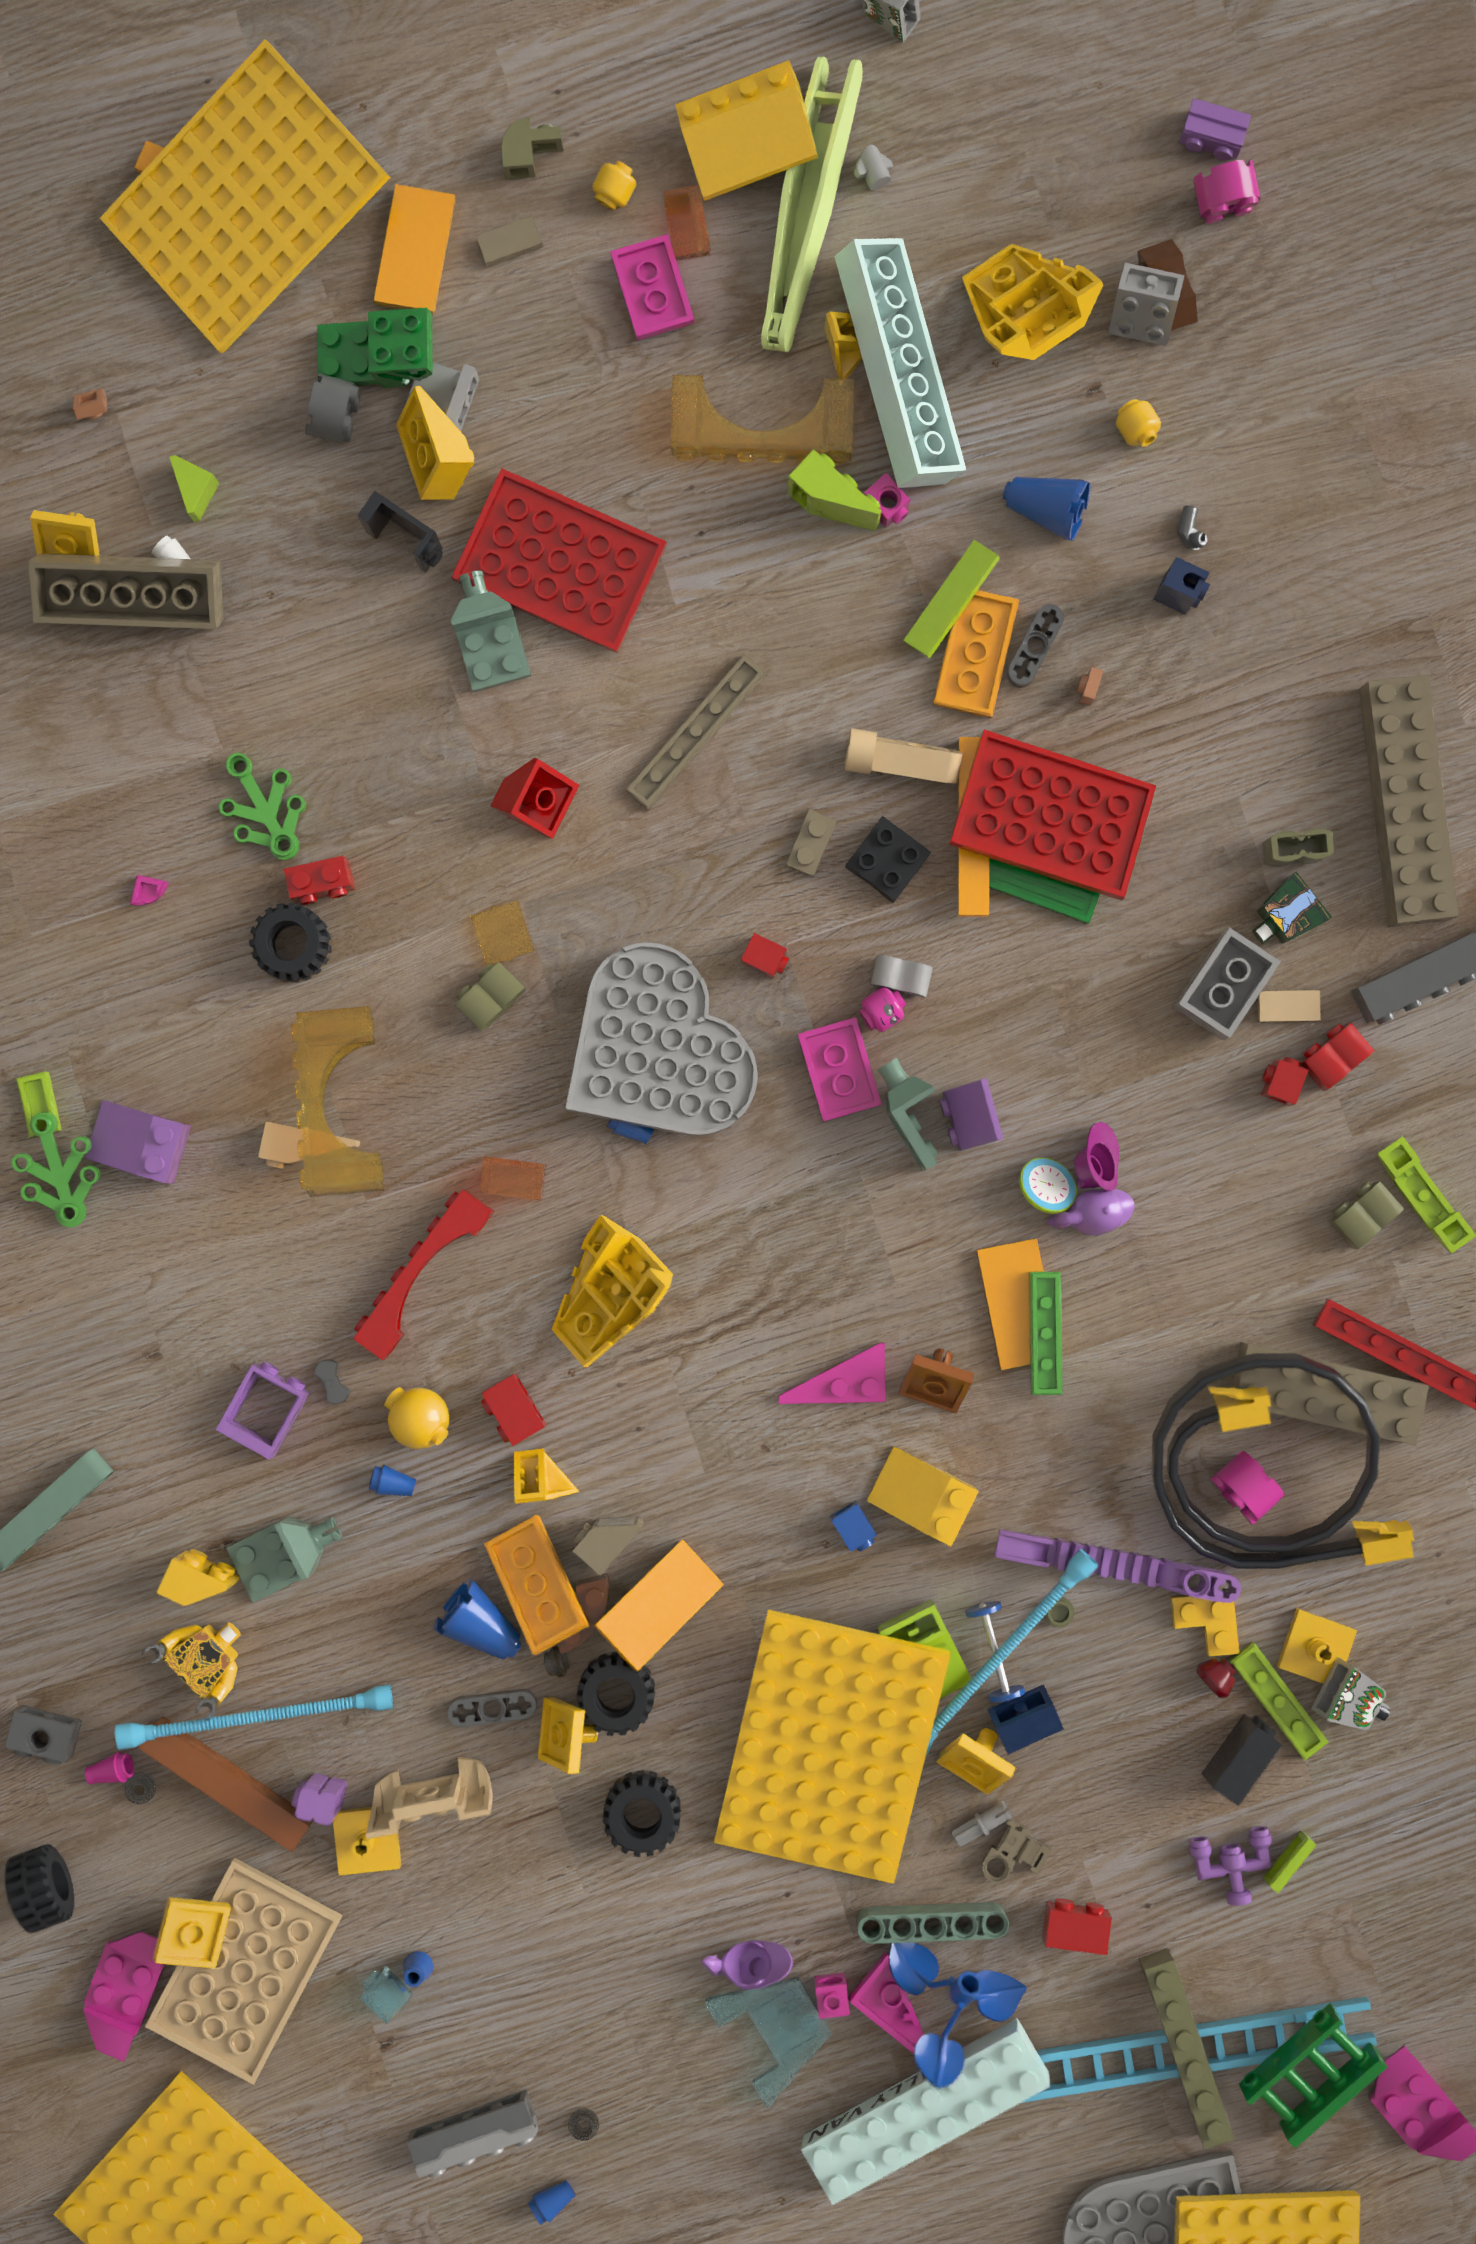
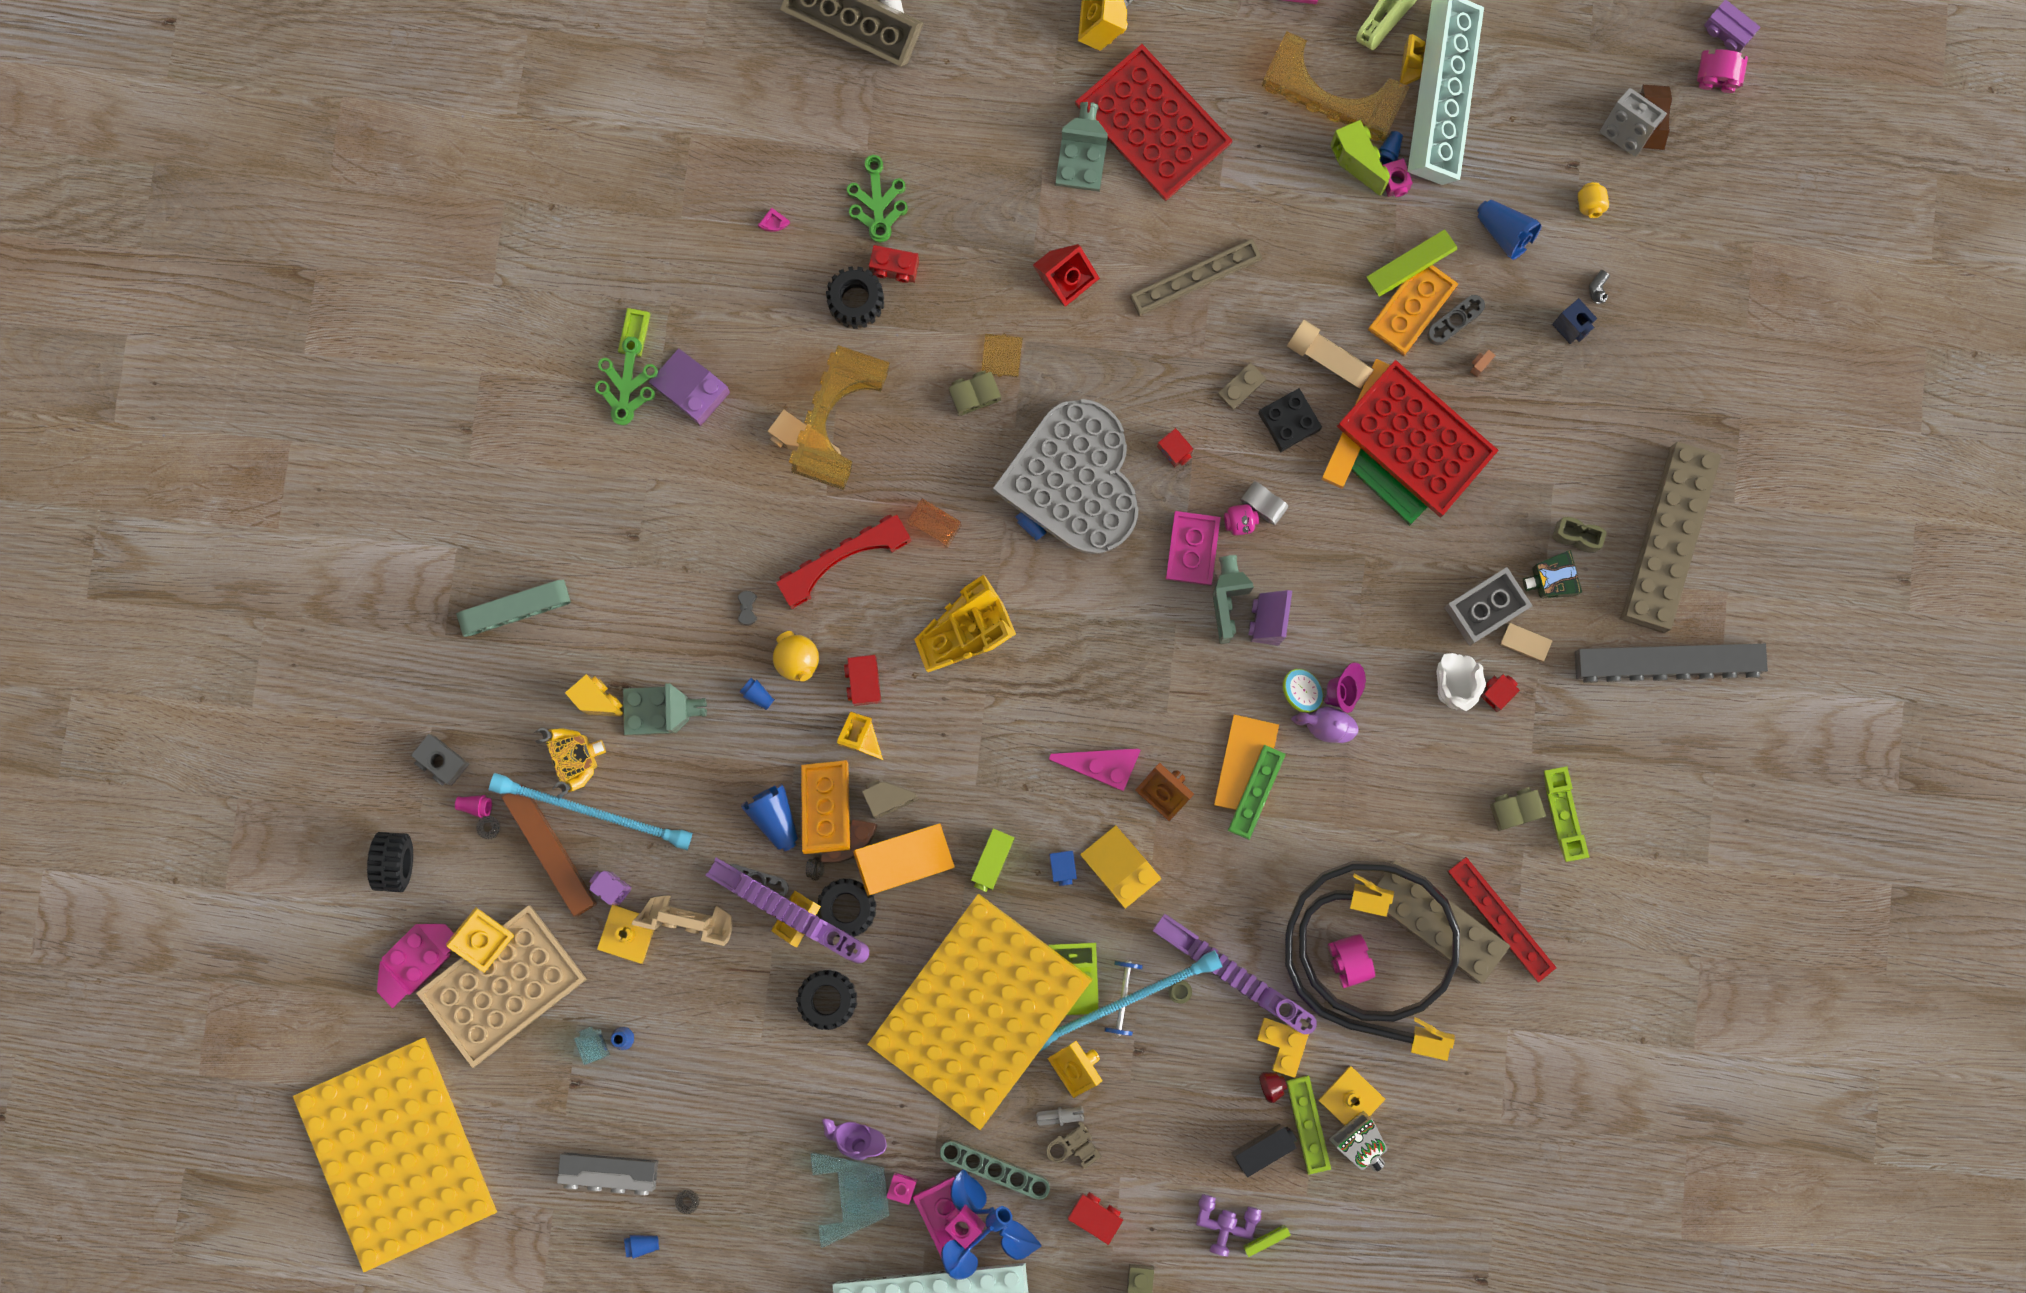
camera: 25 degrees right, 5 degrees down
(245, 1435) = (707, 581): medium lavender window -> none
(380, 511) = (1047, 36): black panel -> none
(559, 1740) = (787, 911): none -> medium lavender piece
(765, 1556) = (992, 860): none -> lime brick
(864, 465) = (1390, 148): none -> blue cone
(935, 2021) = (960, 1234): none -> dark pink brick
(1025, 1719) = (1123, 1054): dark blue brick -> none
(1030, 301) = (1552, 86): yellow wedge -> none
(1231, 1090) = (1459, 681): none -> white hair
(1336, 1056) = (1544, 691): red brick -> none

